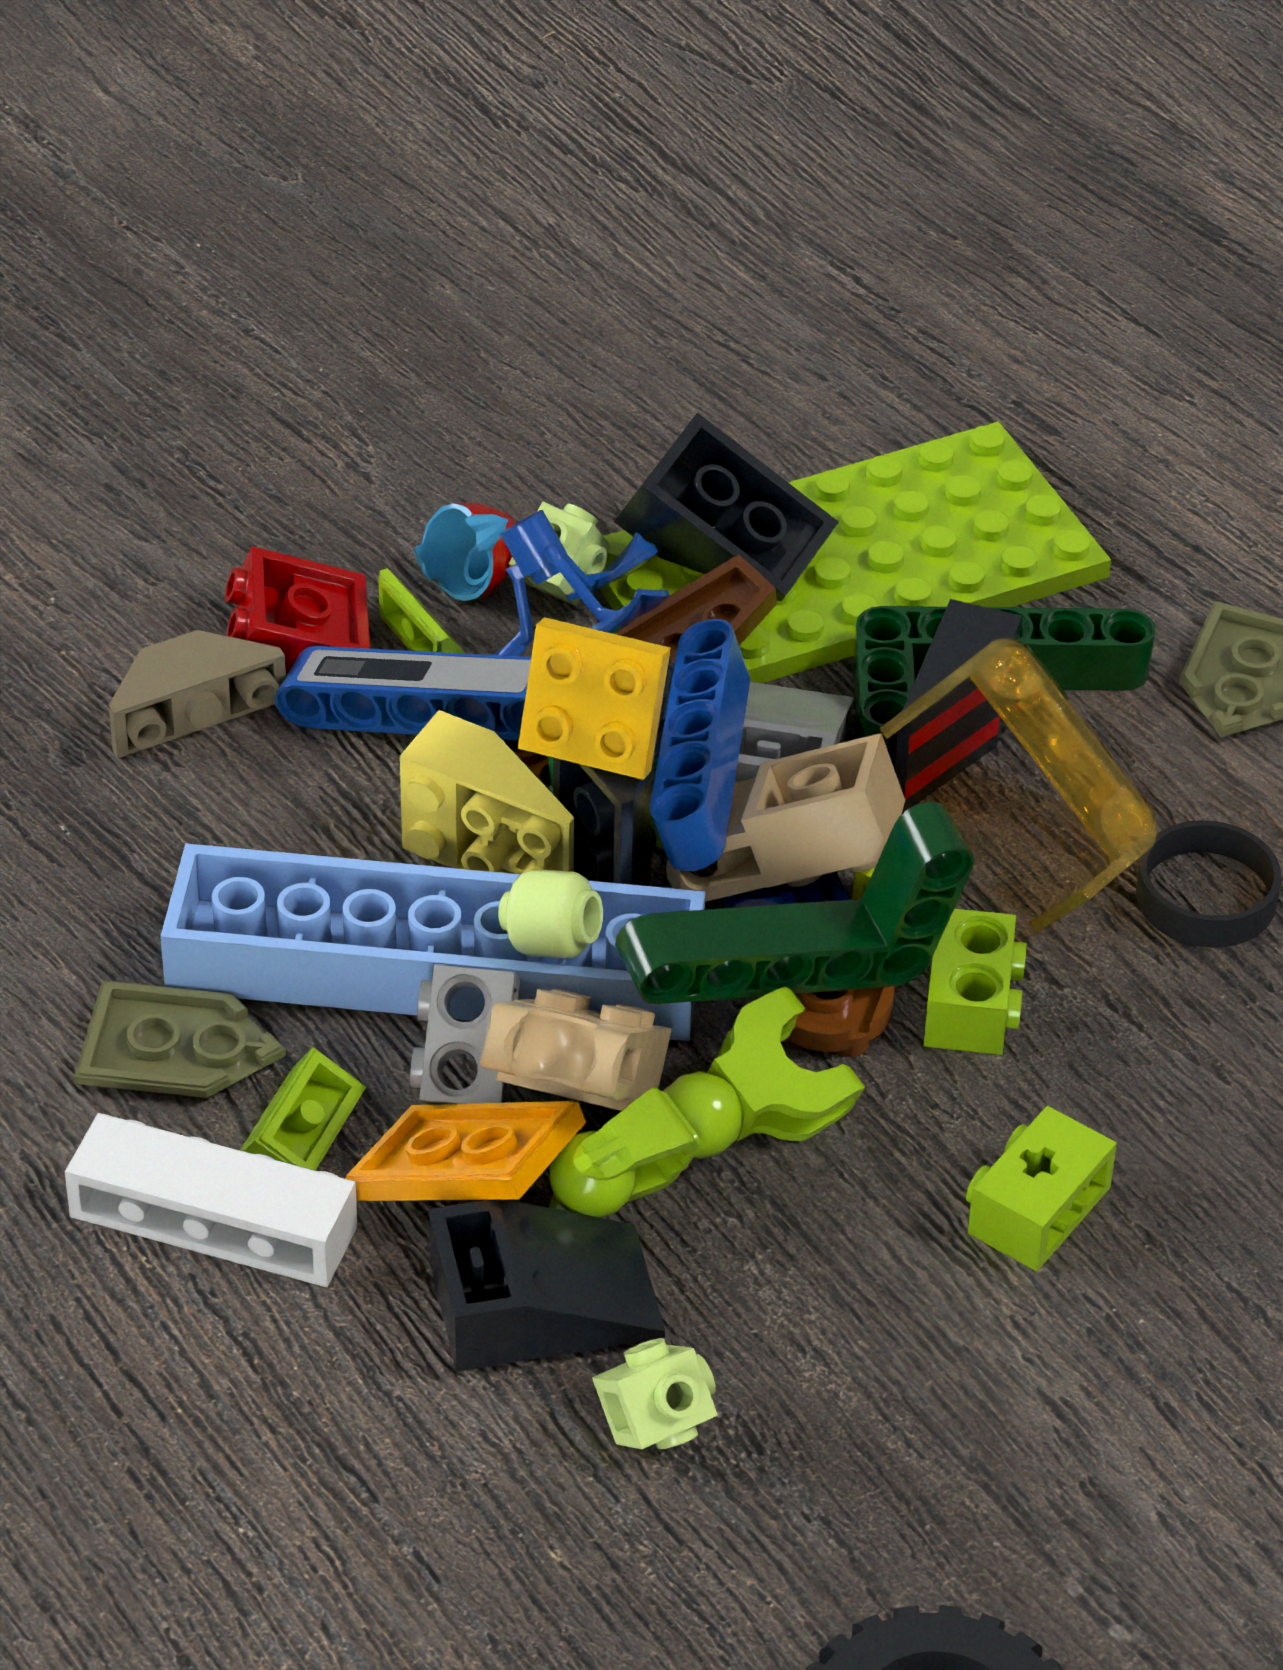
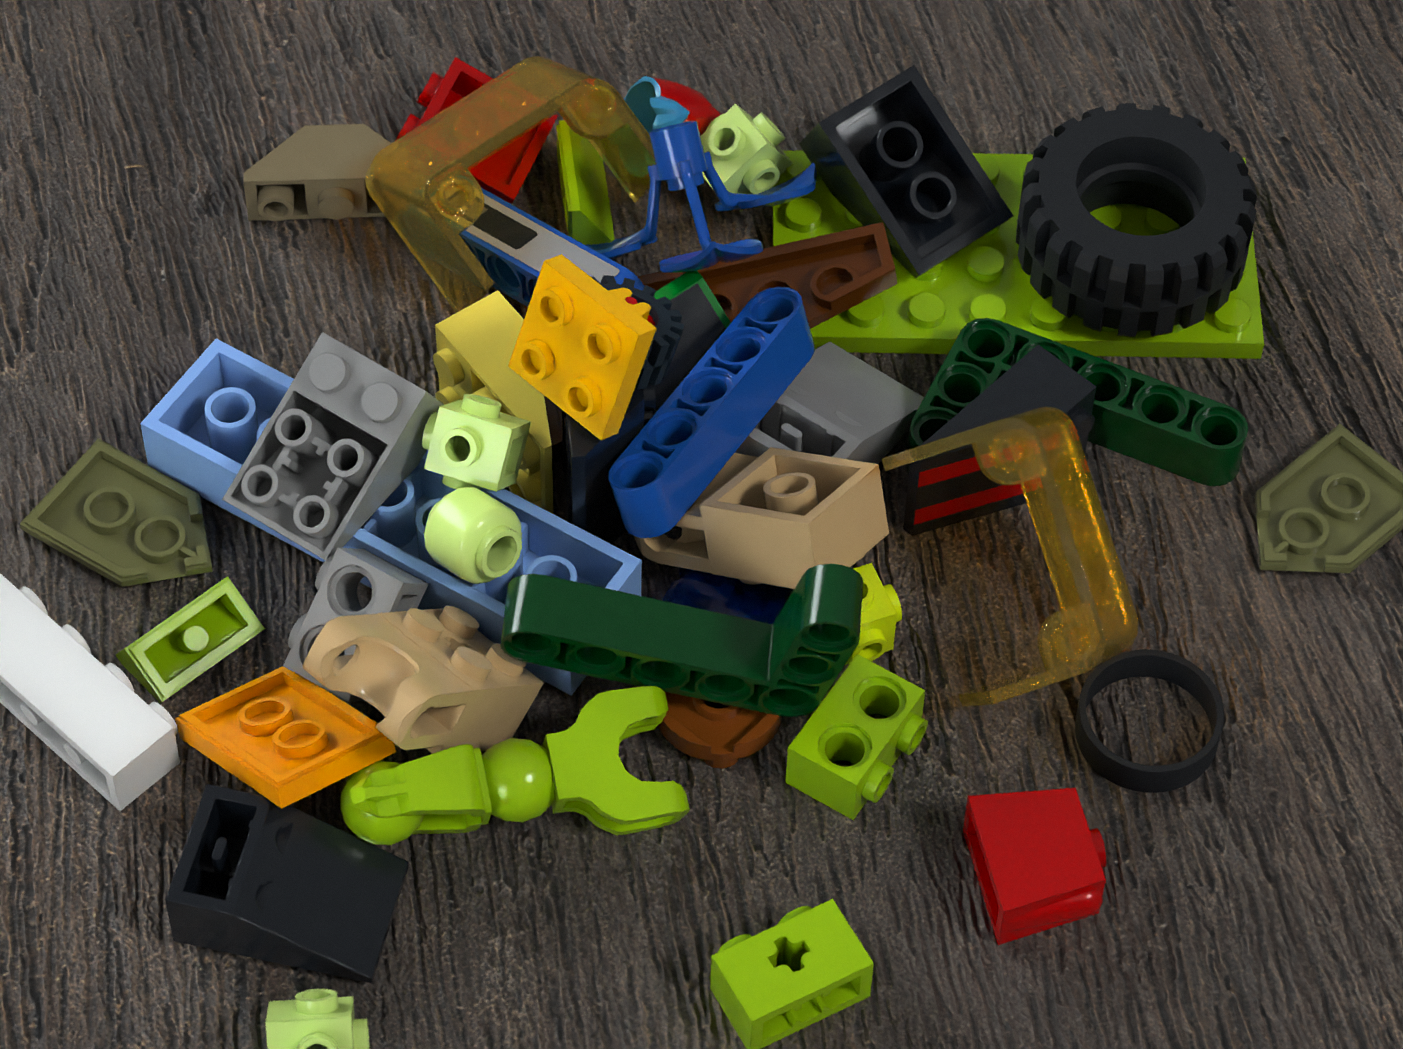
camera: 25 degrees right, 10 degrees up
(318, 661) = (426, 178): none -> clear yellow windscreen
(373, 884) = (333, 448): none -> light grey slope
(531, 837) = (475, 443): none -> yellowish green brick
(948, 532) = (1122, 276): none -> black tyre
(1187, 1022) = (1034, 860): none -> red torso

